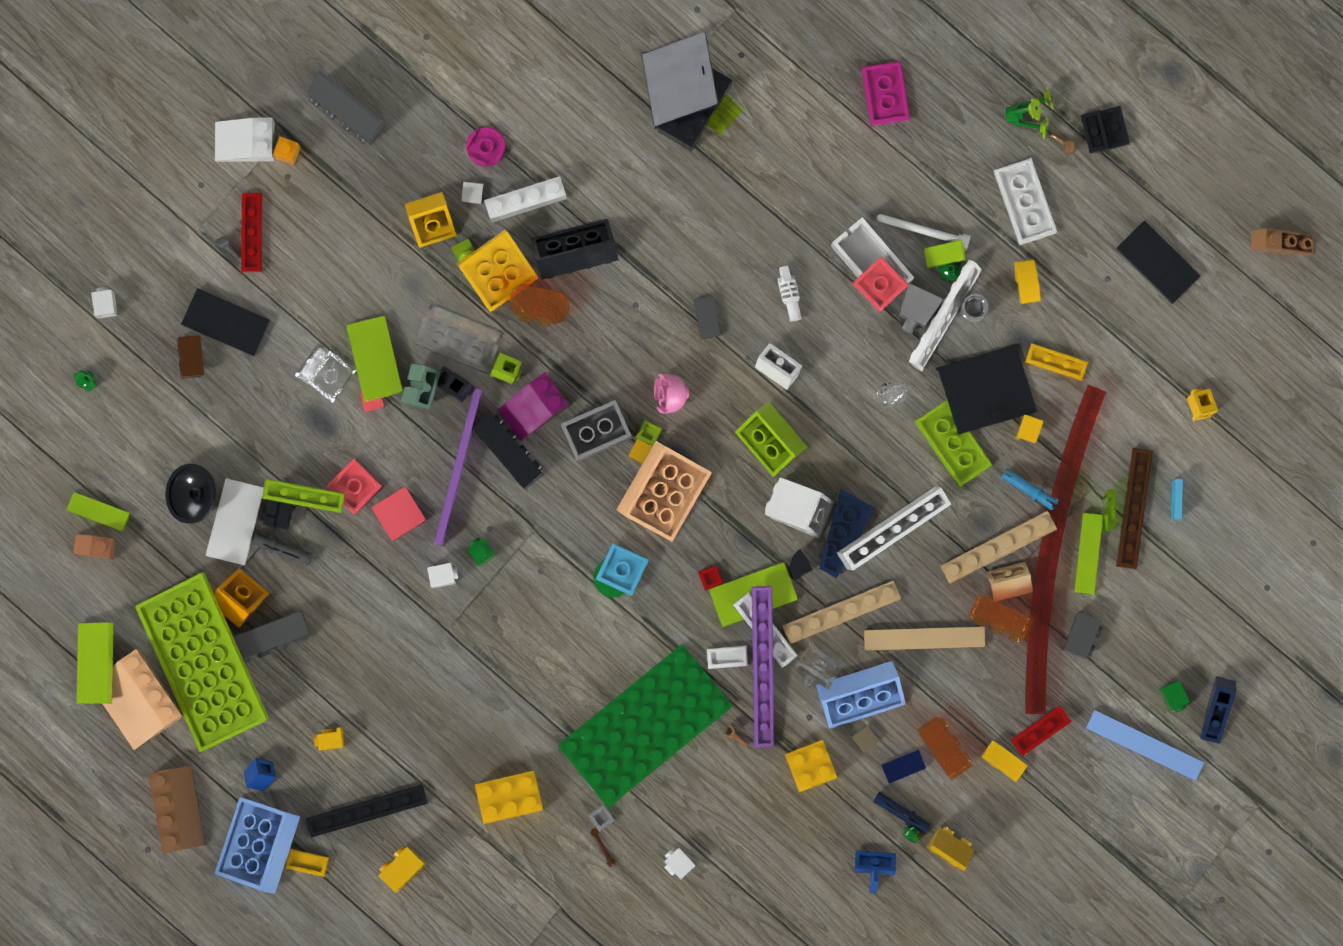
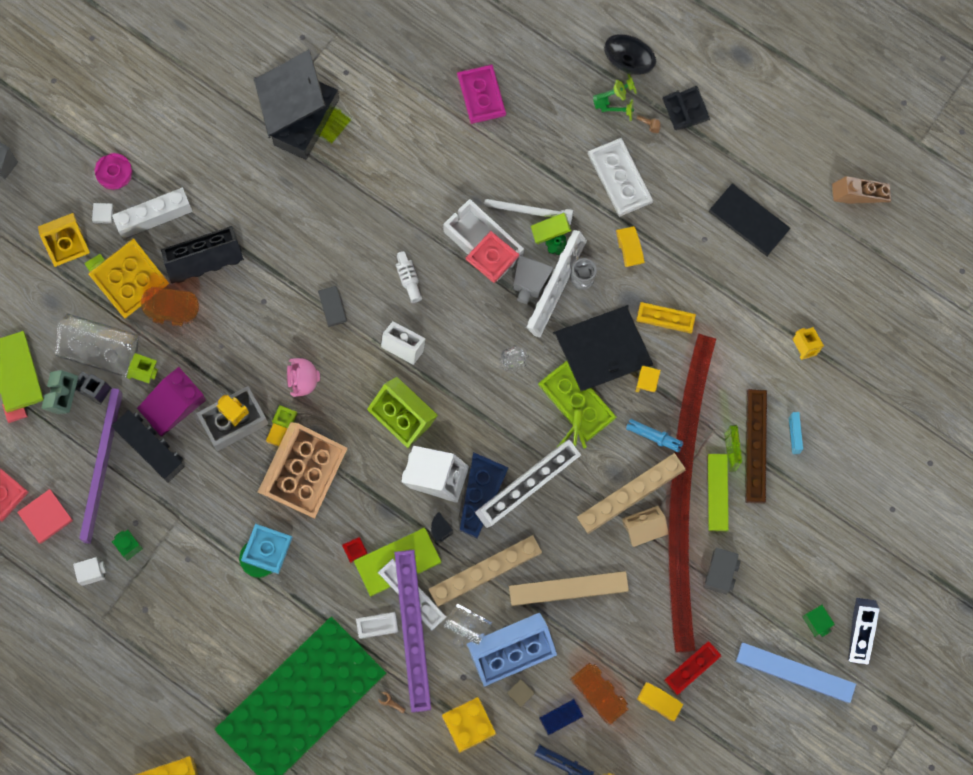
camera: 10 degrees left, 10 degrees down
(597, 424) = (232, 409): none -> yellow brick
(950, 476) = (576, 429): none -> lime plant
(1002, 619) = (642, 561): clear orange brick -> none
(1051, 65) = (629, 54): none -> black dish

